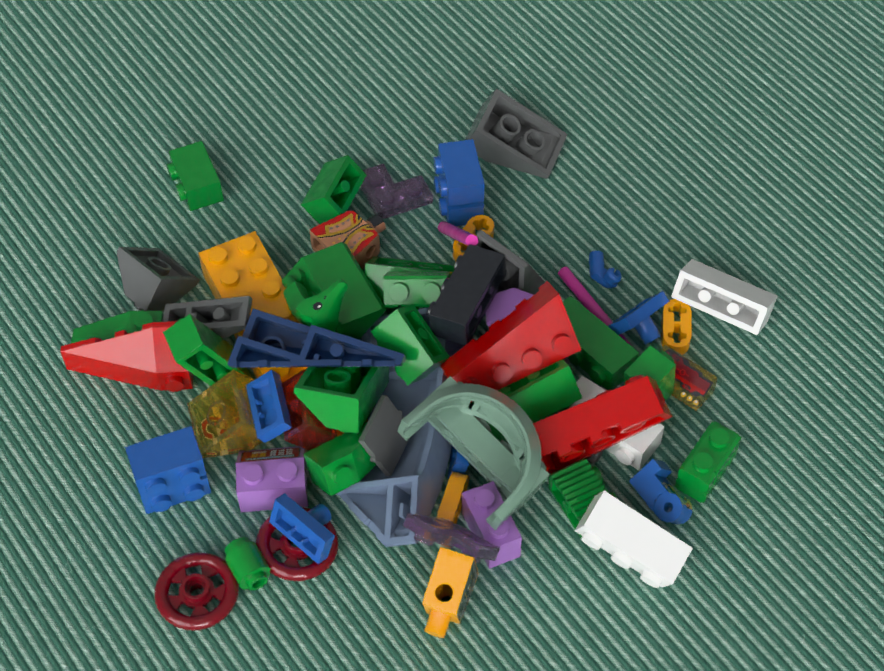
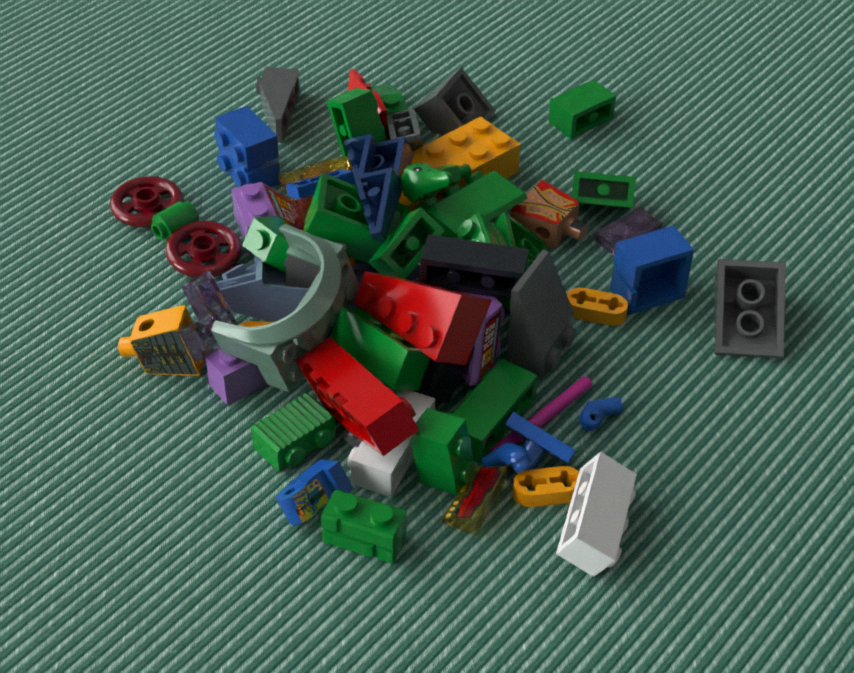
camera: 75 degrees right, 10 degrees down
(68, 434) = (279, 97): none -> dark grey slope
(303, 527) = (209, 236): blue tile -> none
(457, 233) = (573, 268): dark pink bar -> none
(633, 540) = (240, 464): white brick -> none
(653, 336) = (508, 454): none -> blue arm

